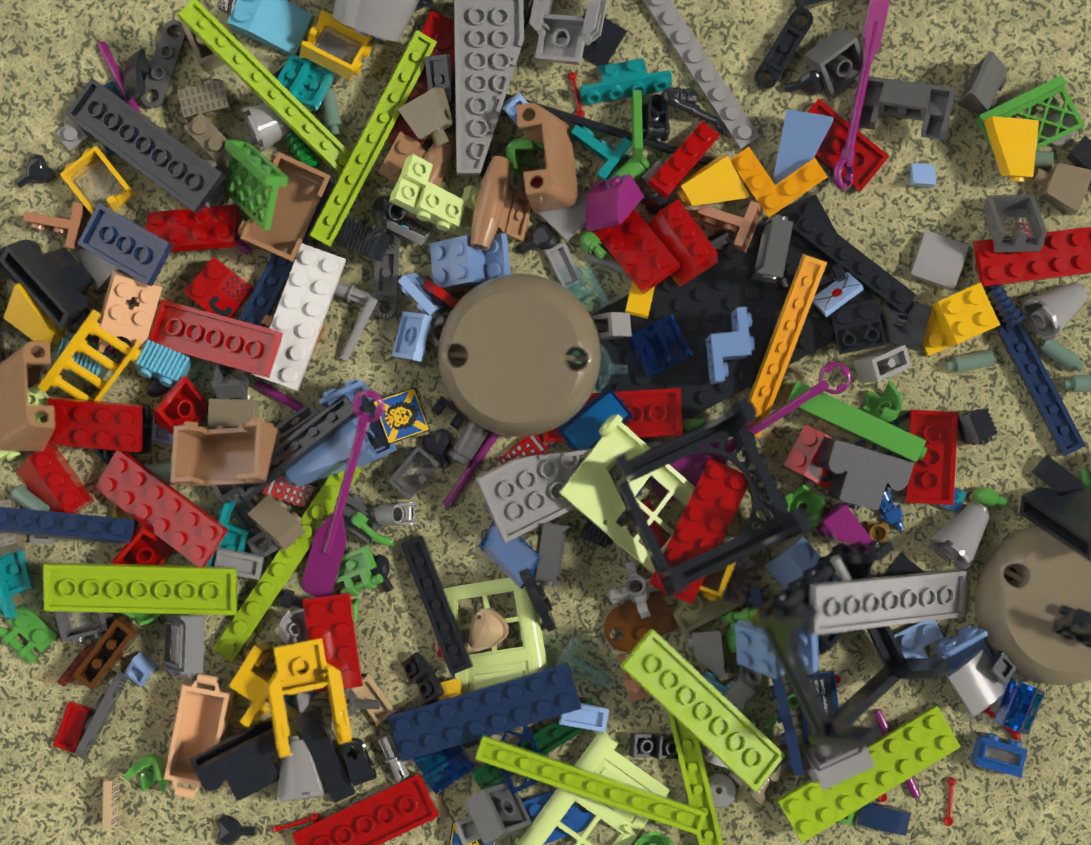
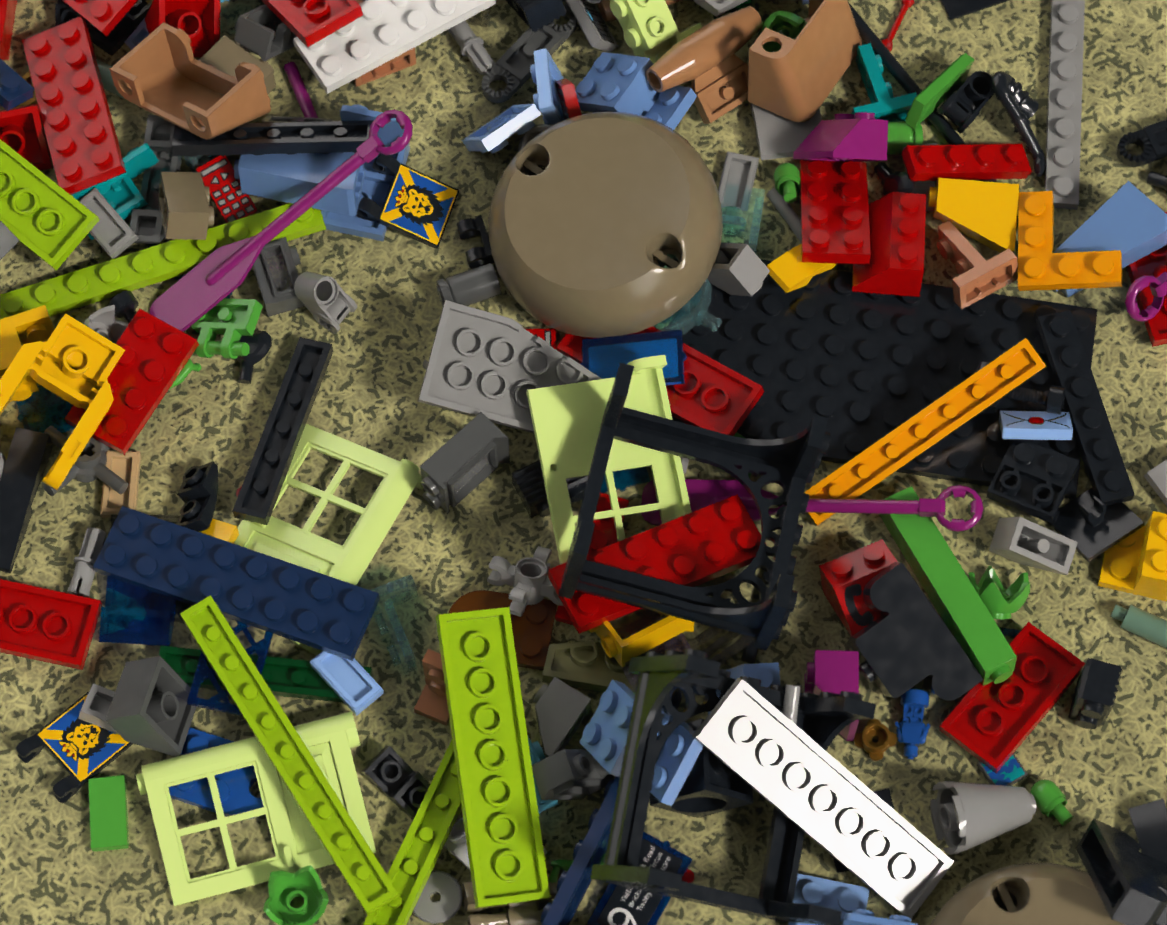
camera: 40 degrees right, 20 degrees down
(356, 332) = (449, 84): light grey bar -> none
(358, 765) = (40, 540): black piece -> none
(360, 520) = (278, 269): bright green piece -> none
(413, 472) = (381, 273): window -> none
(438, 445) = (433, 267): black rock -> none
(471, 468) = (430, 325): magenta bar -> none
(487, 630) = (316, 498): tan piece -> none
(509, 556) = (414, 430): clear blue piece -> none
(537, 596) = (406, 486): black plate -> none
(539, 238) = (733, 137): black rock -> none
(621, 79) = (956, 36): teal bracket -> none
(659, 346) = (777, 336): clear blue slope -> none
(719, 240) = (938, 277): black plate -> none
(729, 345) = (858, 381): medium blue bracket -> none
(773, 249) = (992, 317): dark grey window -> none
(813, 501) = (814, 625): bright green piece -> none

